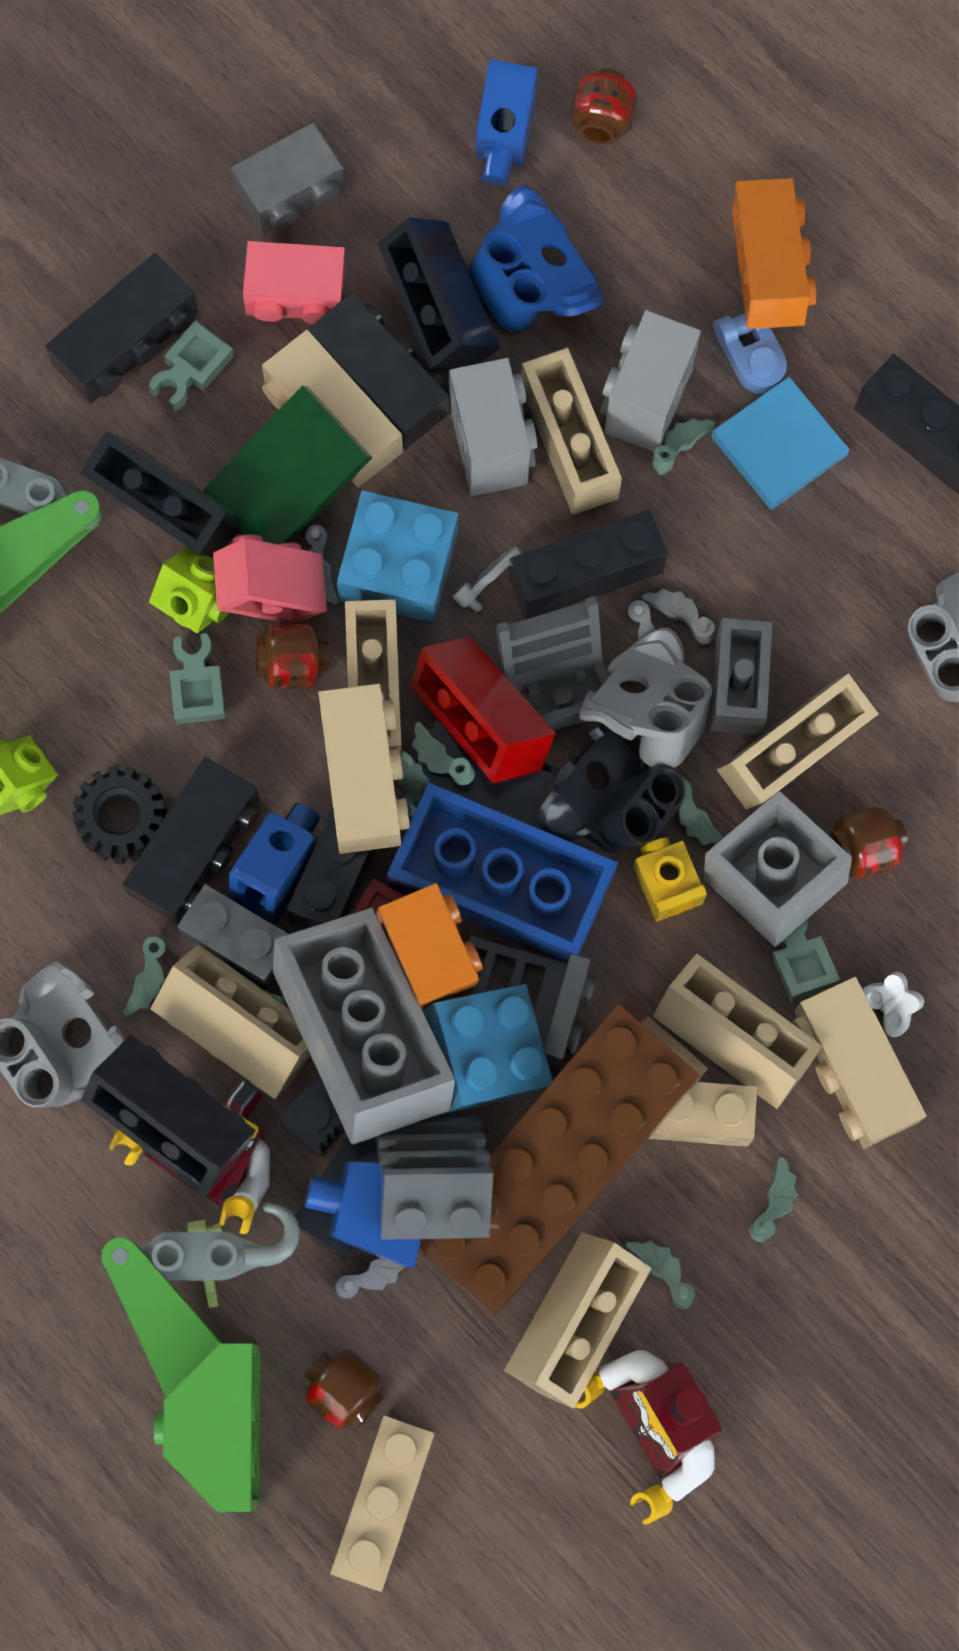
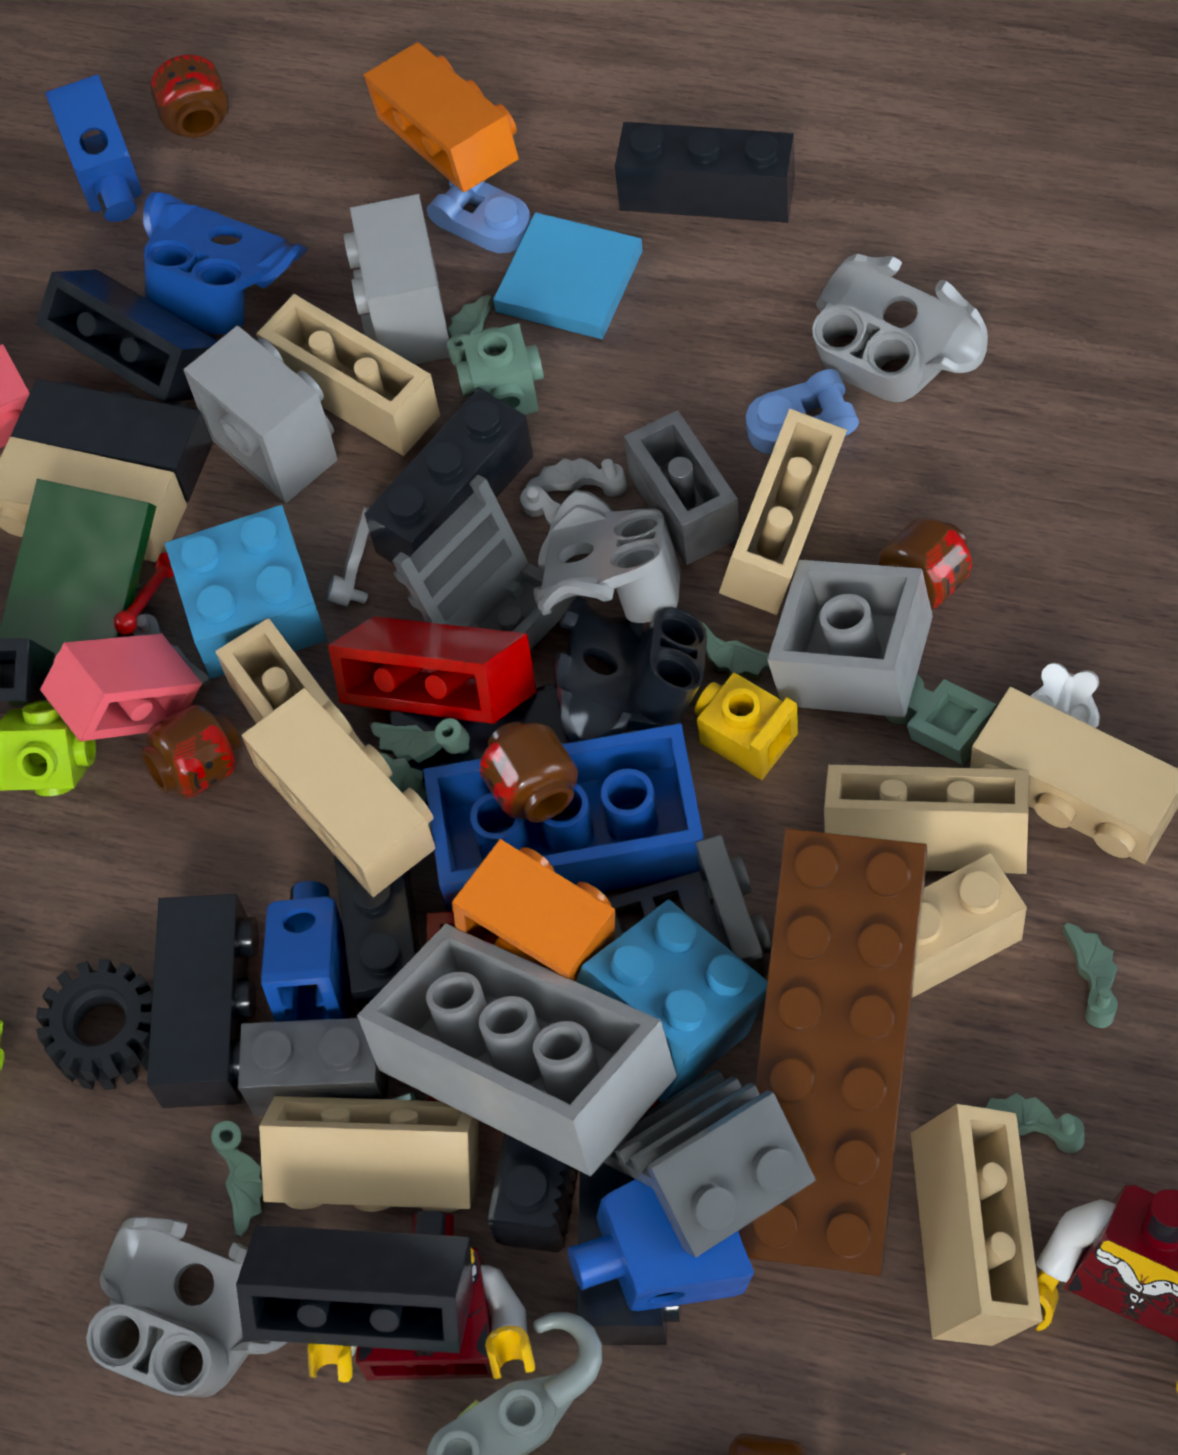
camera: 20 degrees left, 15 degrees down
(197, 688) = (106, 845): sand green plate -> none
(302, 530) = (126, 621): none -> red hinge
(375, 1278) = (716, 1332): light grey piece -> none
(492, 836) = (528, 771): none -> reddish brown head
(678, 497) = (501, 366): none -> sand green brick
(854, 656) = (823, 390): none -> medium blue plate

